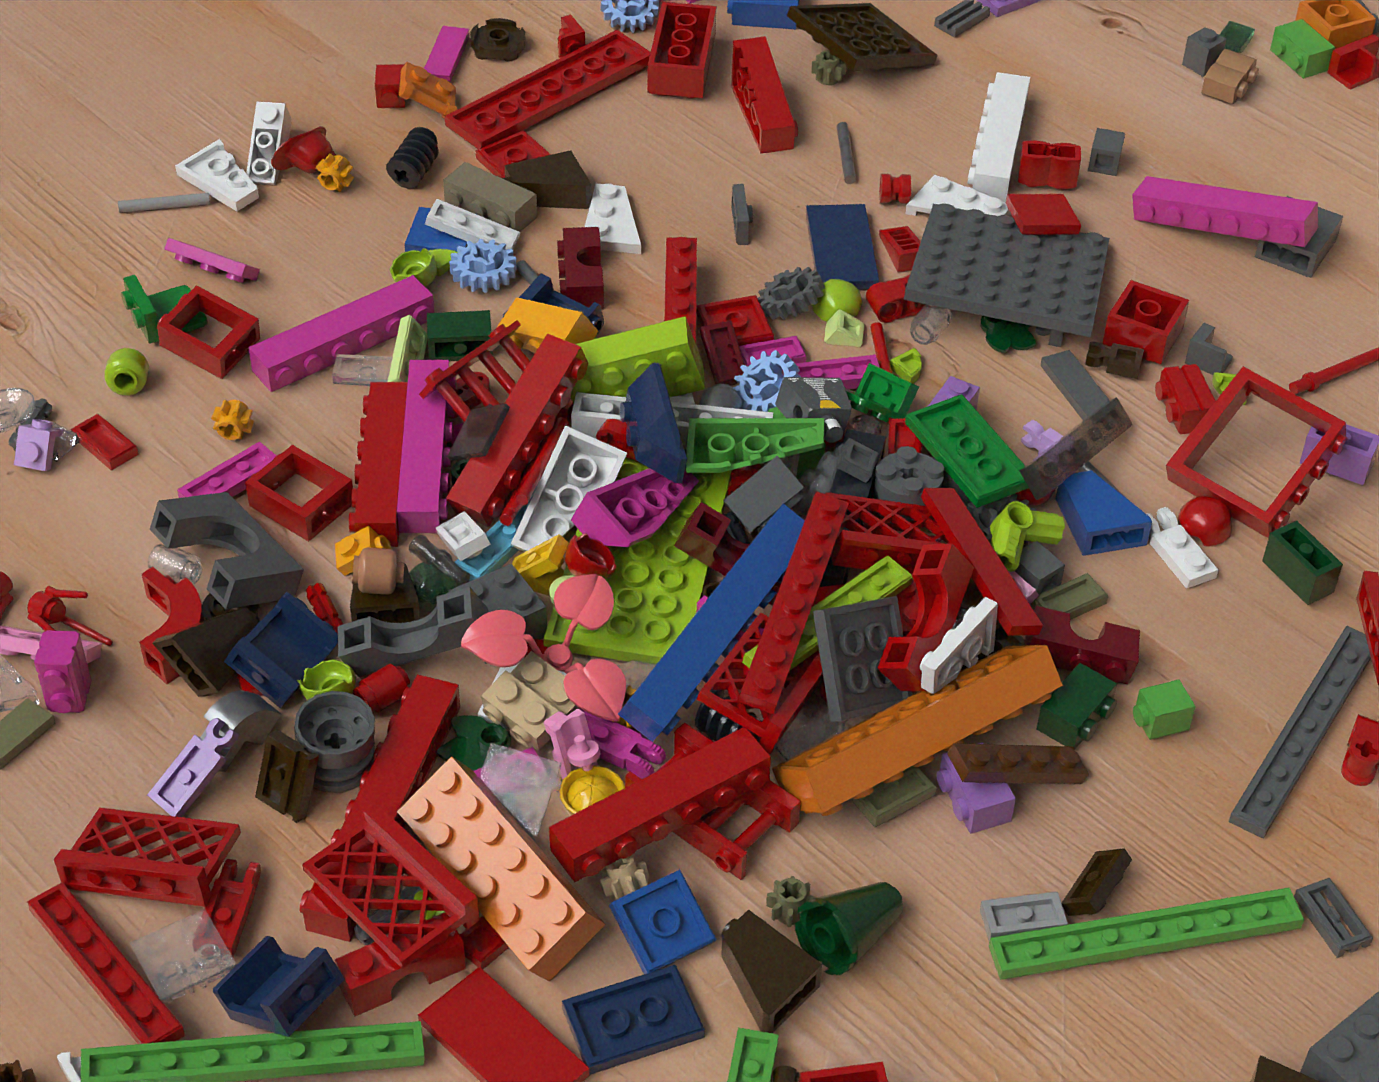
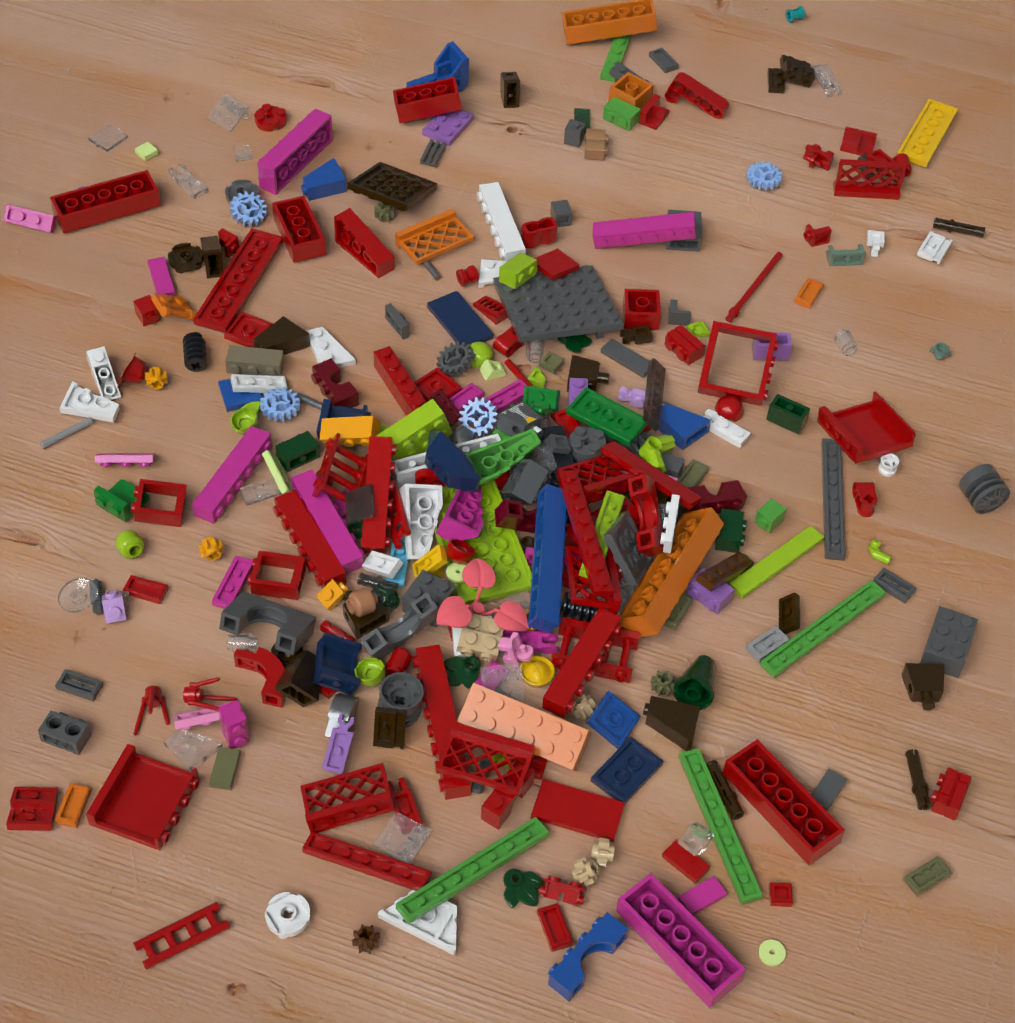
camera: 30 degrees left, 5 degrees up
(277, 988) = (462, 832): dark blue panel -> none
(531, 45) = (212, 256): none -> dark brown slope
(884, 109) = (428, 229): none -> orange fence
(944, 350) = (551, 362): none -> olive plate
(971, 200) = (517, 270): none -> lime brick
(996, 381) = (588, 369): none -> dark brown torso
(1132, 790) = (776, 562): none -> lime tile
(1332, 849) = (876, 552): none -> lime arm

